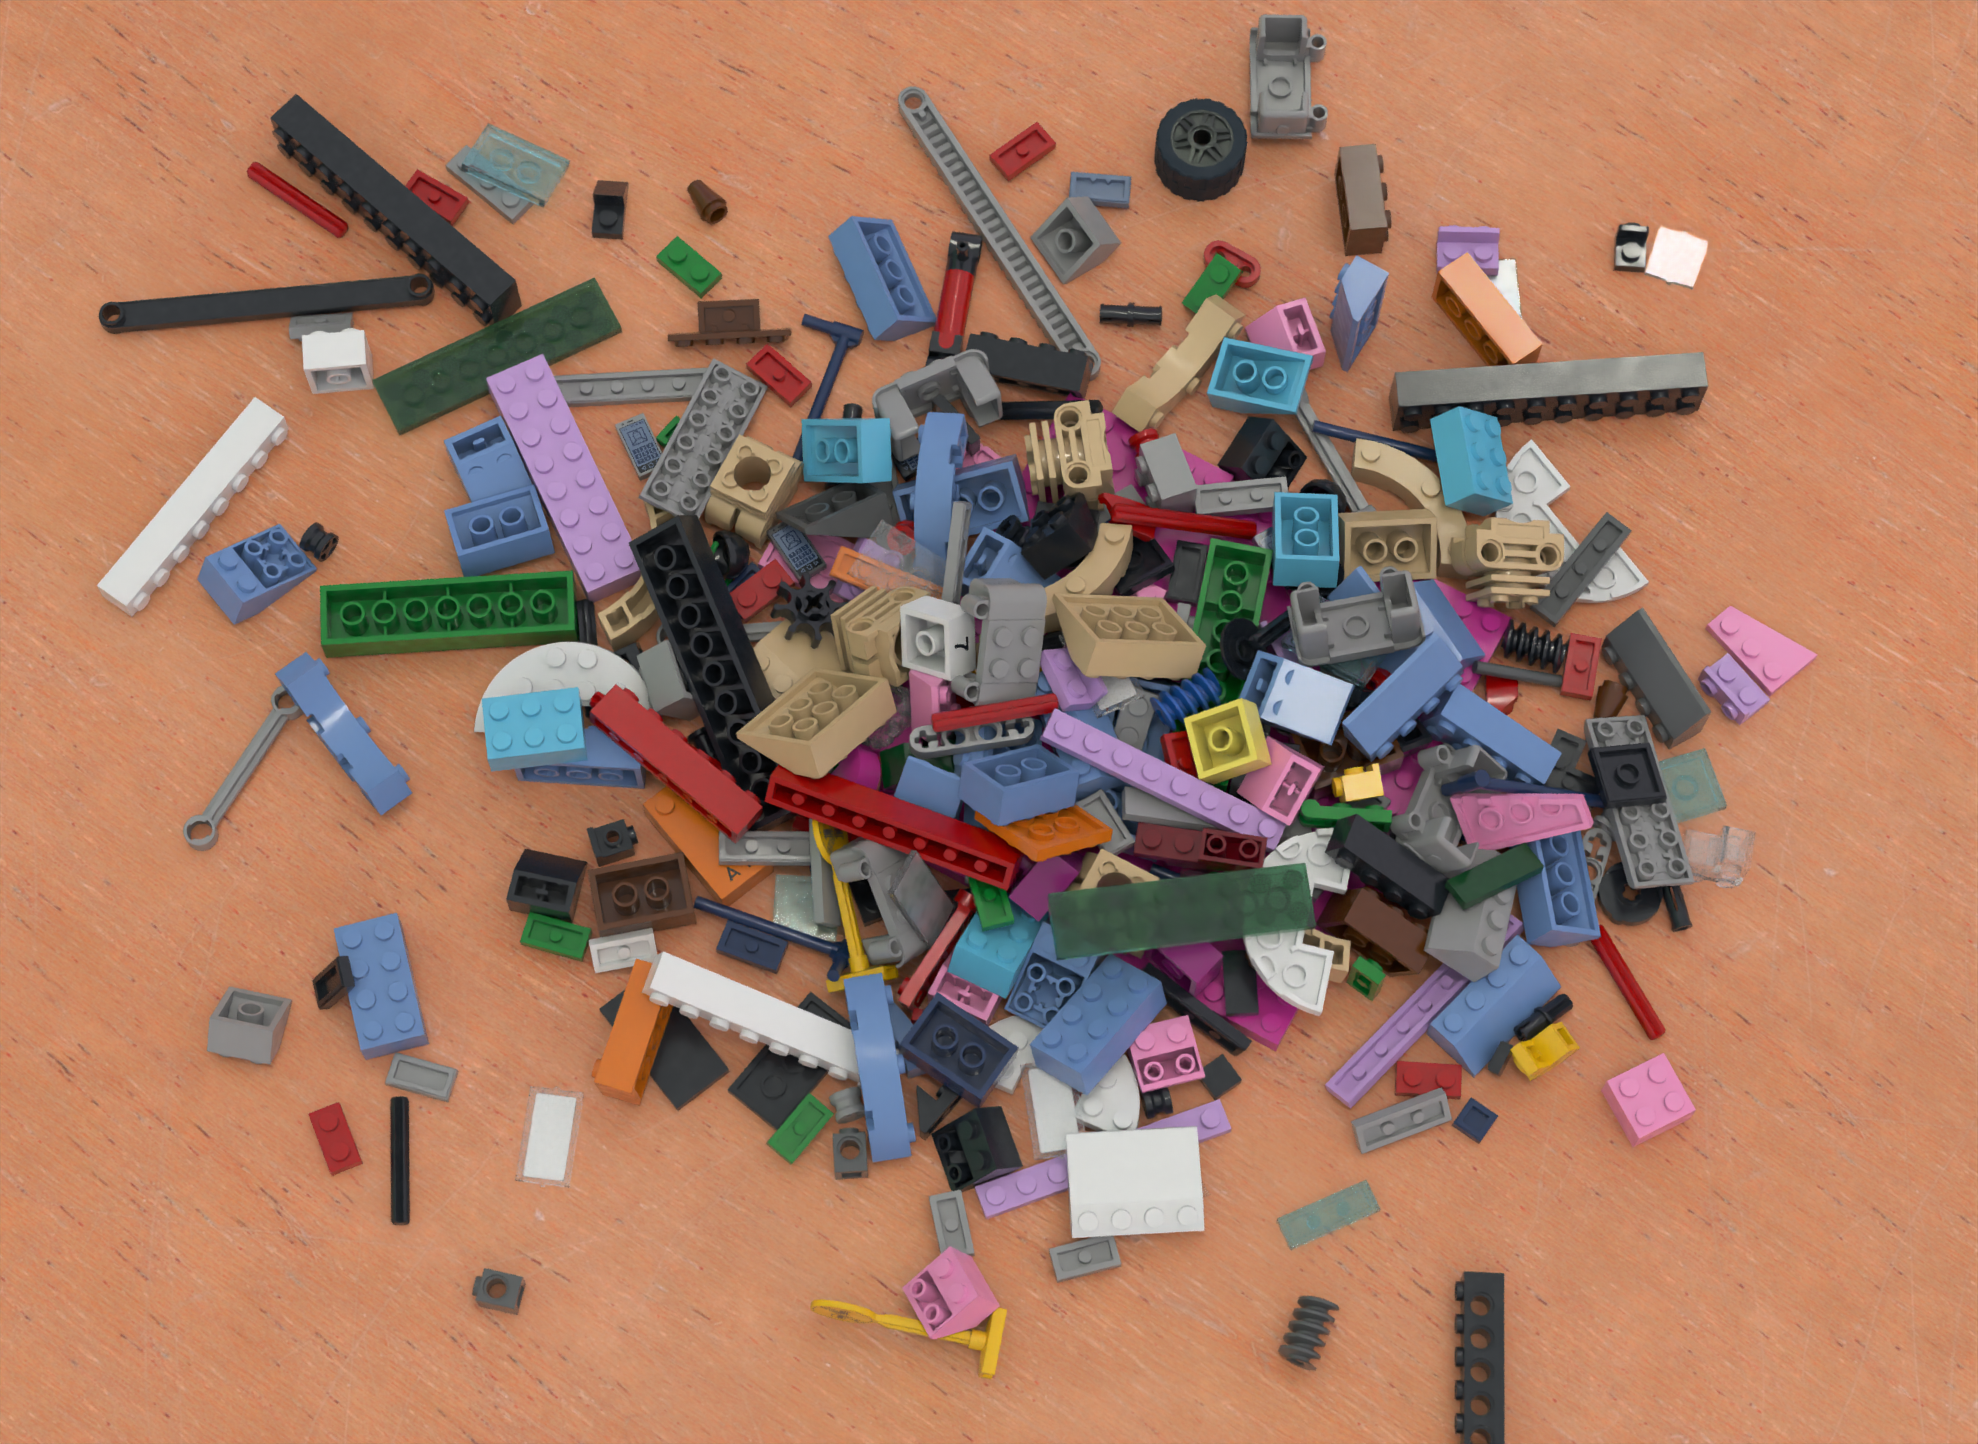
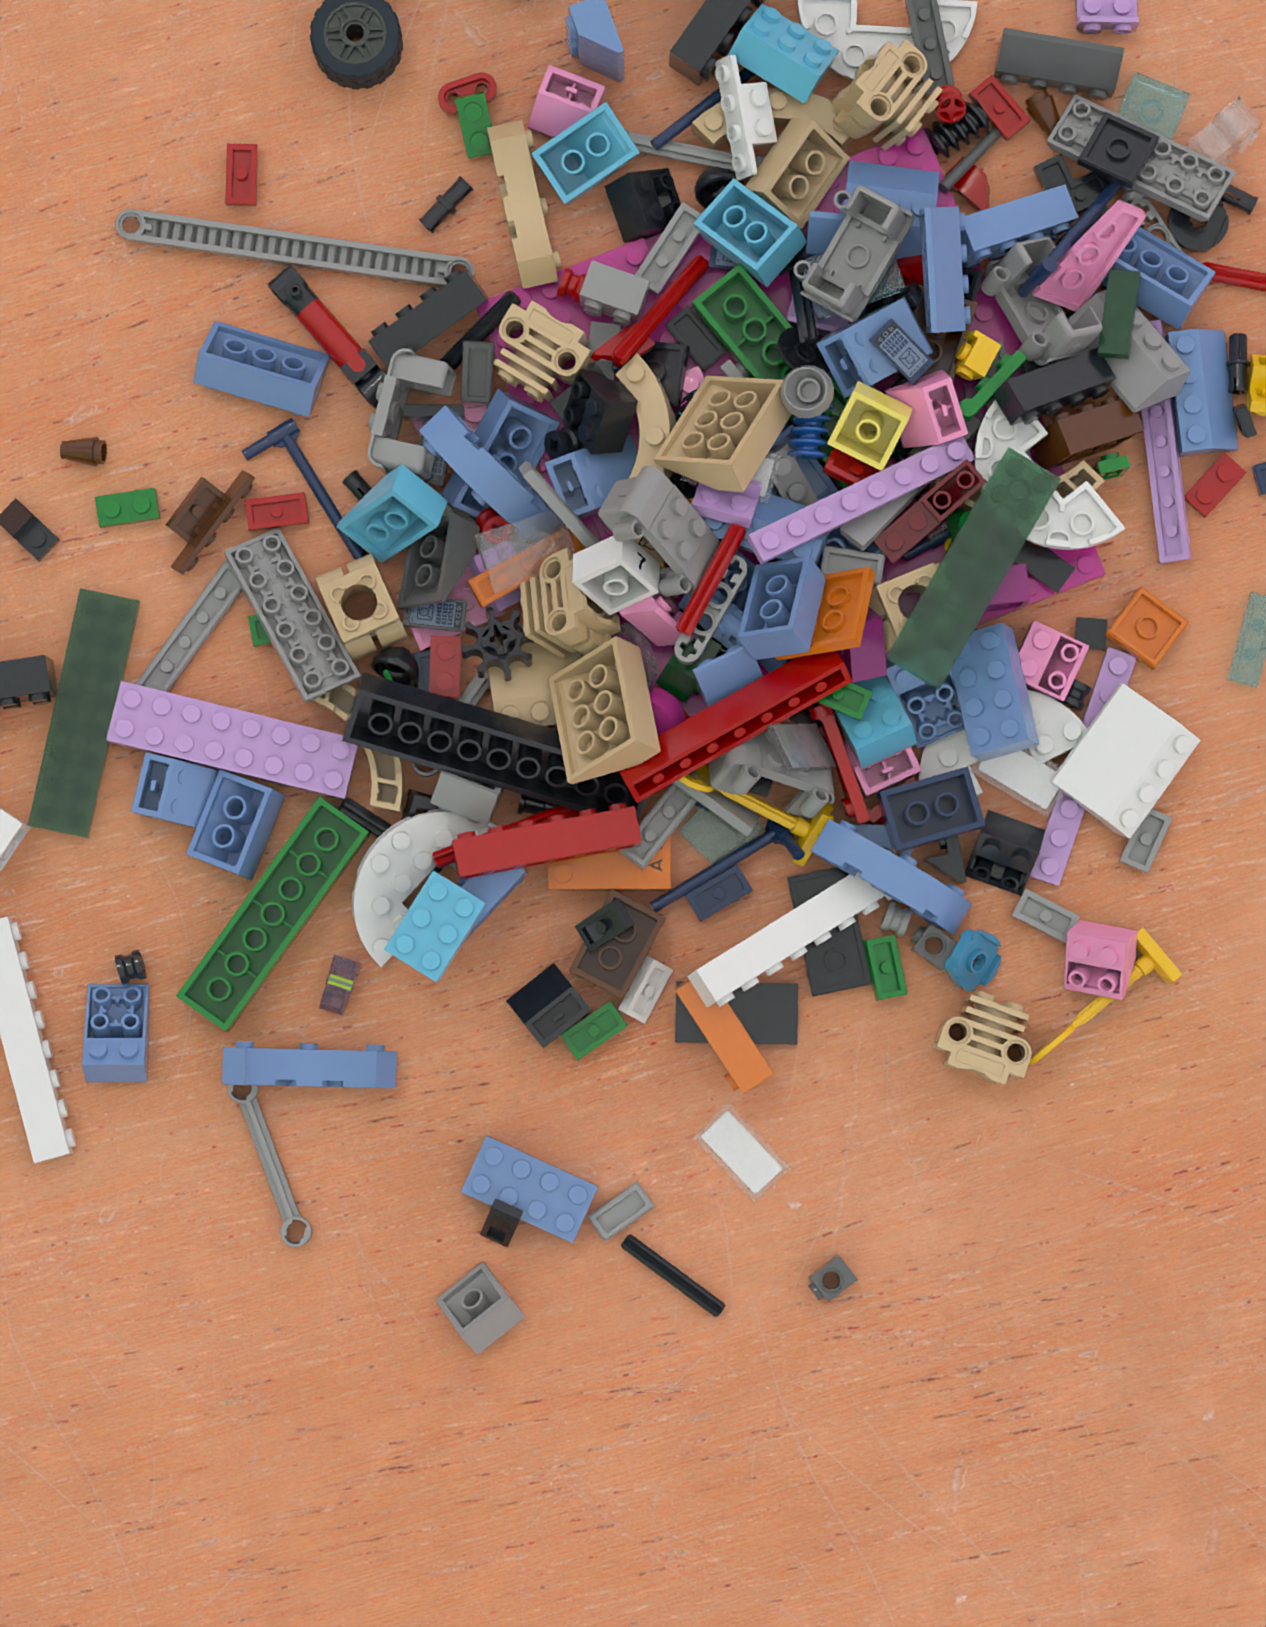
camera: 50 degrees left, 15 degrees up
(335, 1138) = (617, 1309): red plate -> none
(433, 710) = (339, 984): none -> leg
(610, 852) = (550, 943): black brick -> none
(639, 444) = (248, 661): tile -> none
(647, 865) = (604, 925): none -> black slope
(804, 1252) = (986, 1039): none -> tan piece
(860, 1177) = (974, 945): none -> dark azure plate
(1009, 436) = (477, 371): none -> dark grey tile
(1075, 238) = (349, 195): light grey slope -> none
(1101, 188) = (322, 142): sand blue plate -> none
(1200, 1014) = (1038, 611): black tile -> none
(1211, 667) = (807, 391): none -> light grey hat
(1262, 1117) = (1146, 628): none -> orange plate
(1308, 717) = (901, 351): none -> tile
(1398, 470) = (746, 116): none -> white bracket
(1401, 1120) = (1230, 530): light grey plate -> none
(1540, 622) = (954, 109): none -> red wheel

